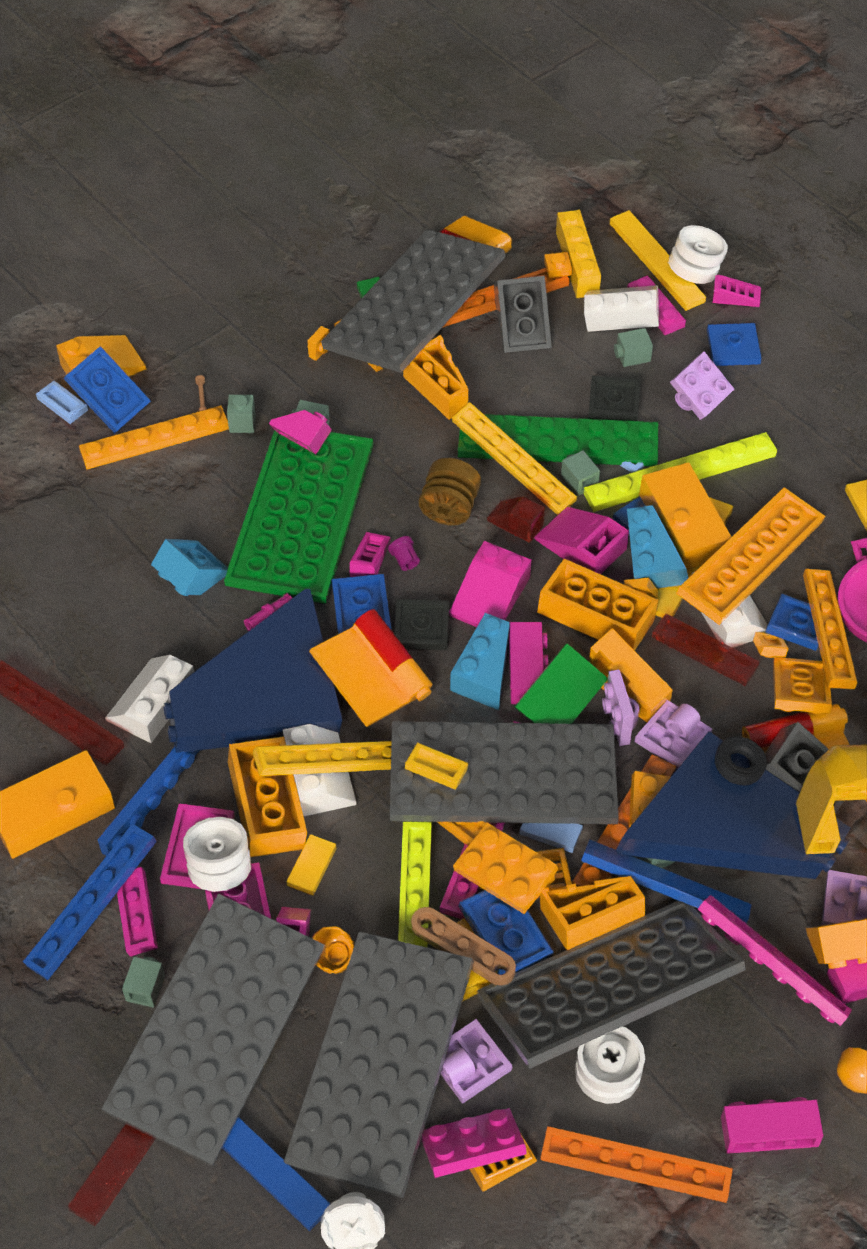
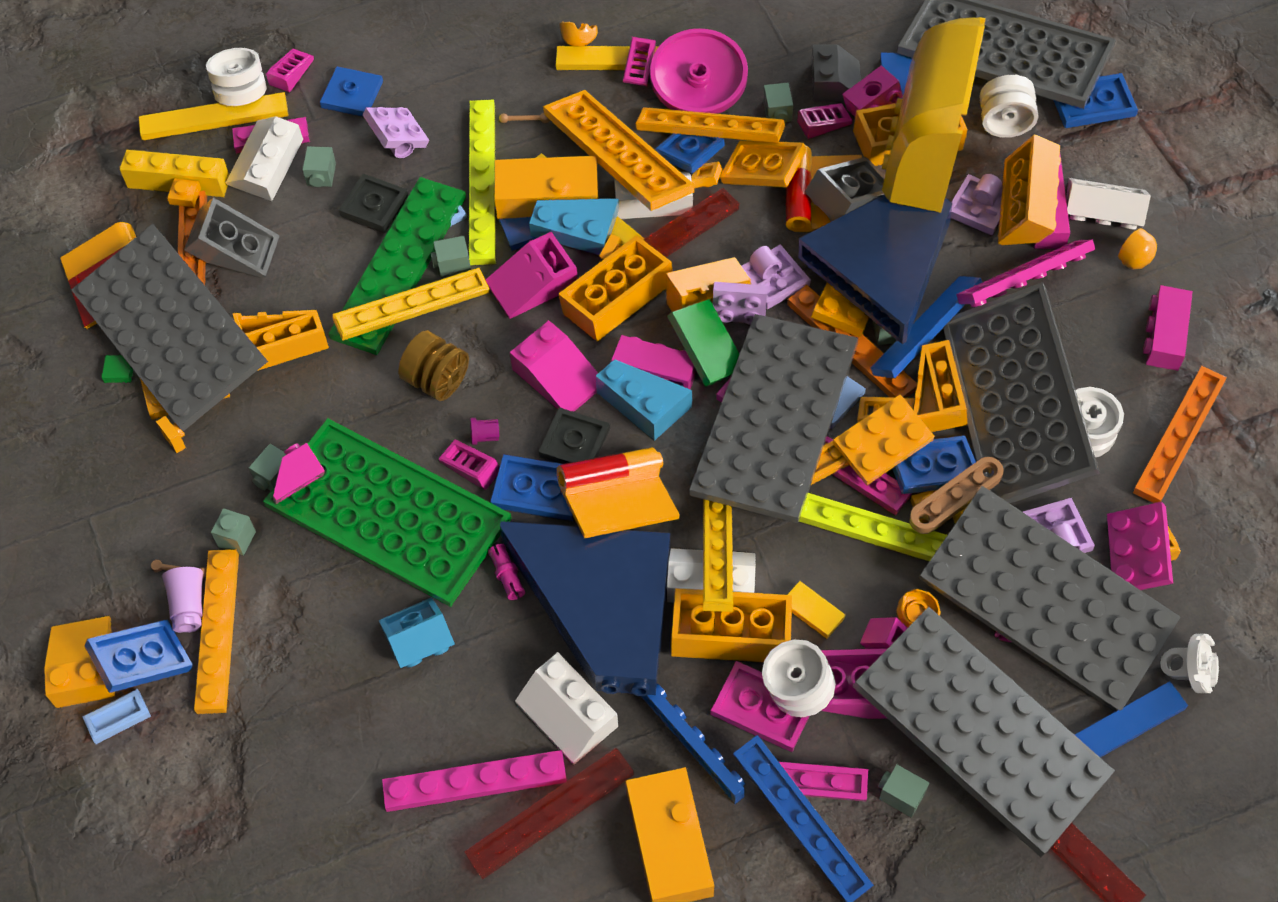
camera: 70 degrees left, 5 degrees up
(70, 653) = (474, 781): none -> dark pink plate
(170, 403) = (184, 597): none -> lavender plant
(436, 766) = (761, 461): yellow tile -> none
(519, 517) = (481, 322): clear red slope -> none
(732, 772) = (840, 235): black tyre -> none
(762, 466) = (503, 118): none -> medium nougat hinge

